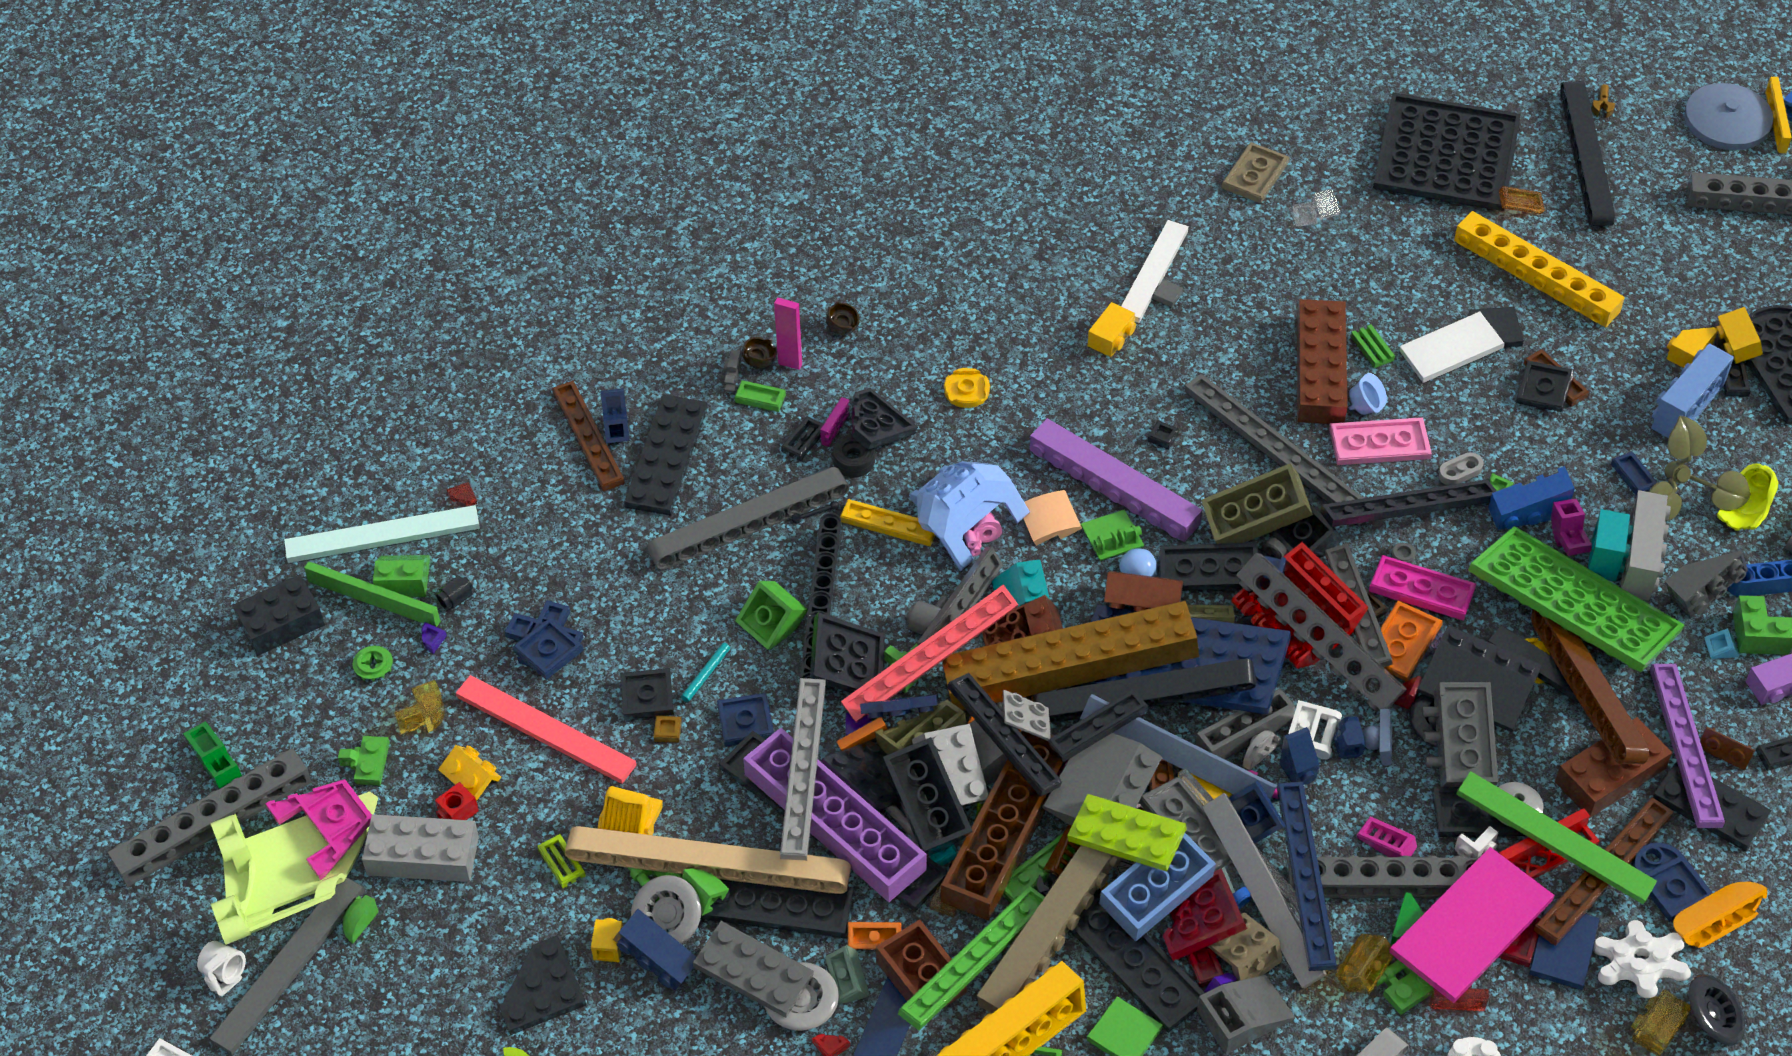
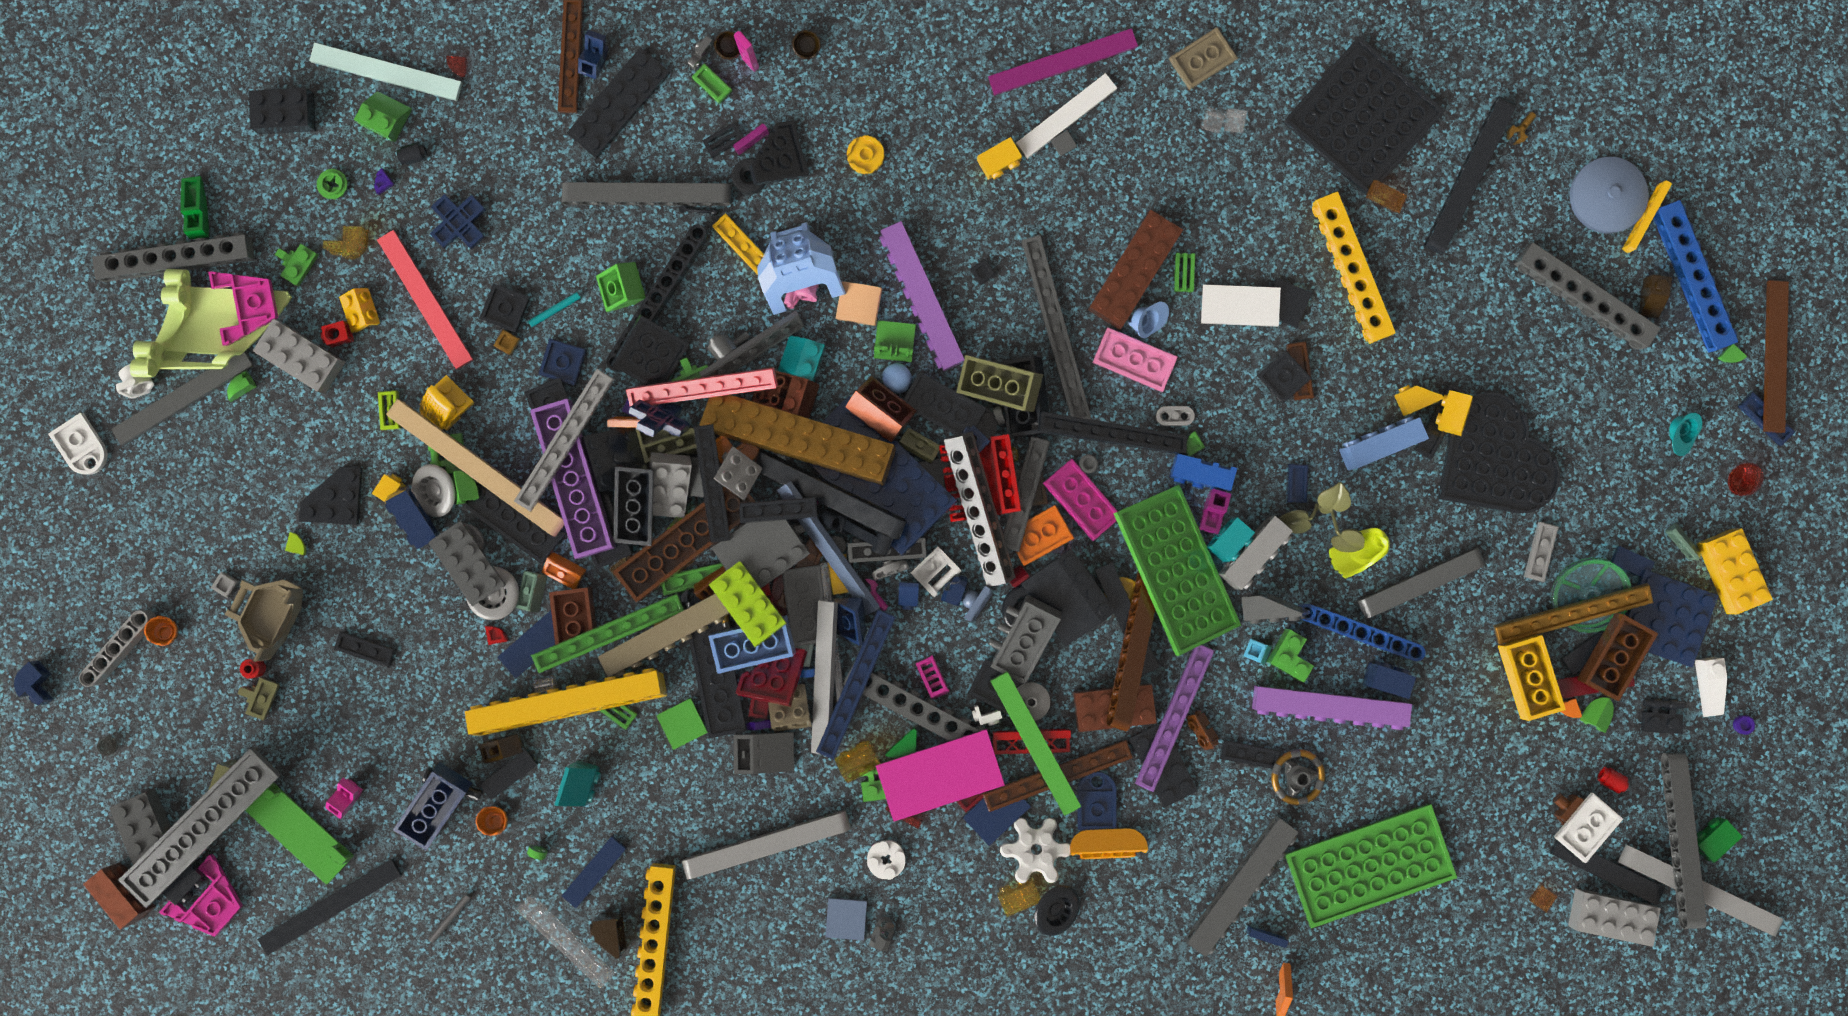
camera: 25 degrees right, 35 degrees up
(372, 594) = (357, 128): bright green tile -> none
(548, 648) = (452, 238): dark blue tile -> none
(1116, 231) = (1062, 62): none -> magenta tile
(1180, 722) = (841, 523): none -> black piece

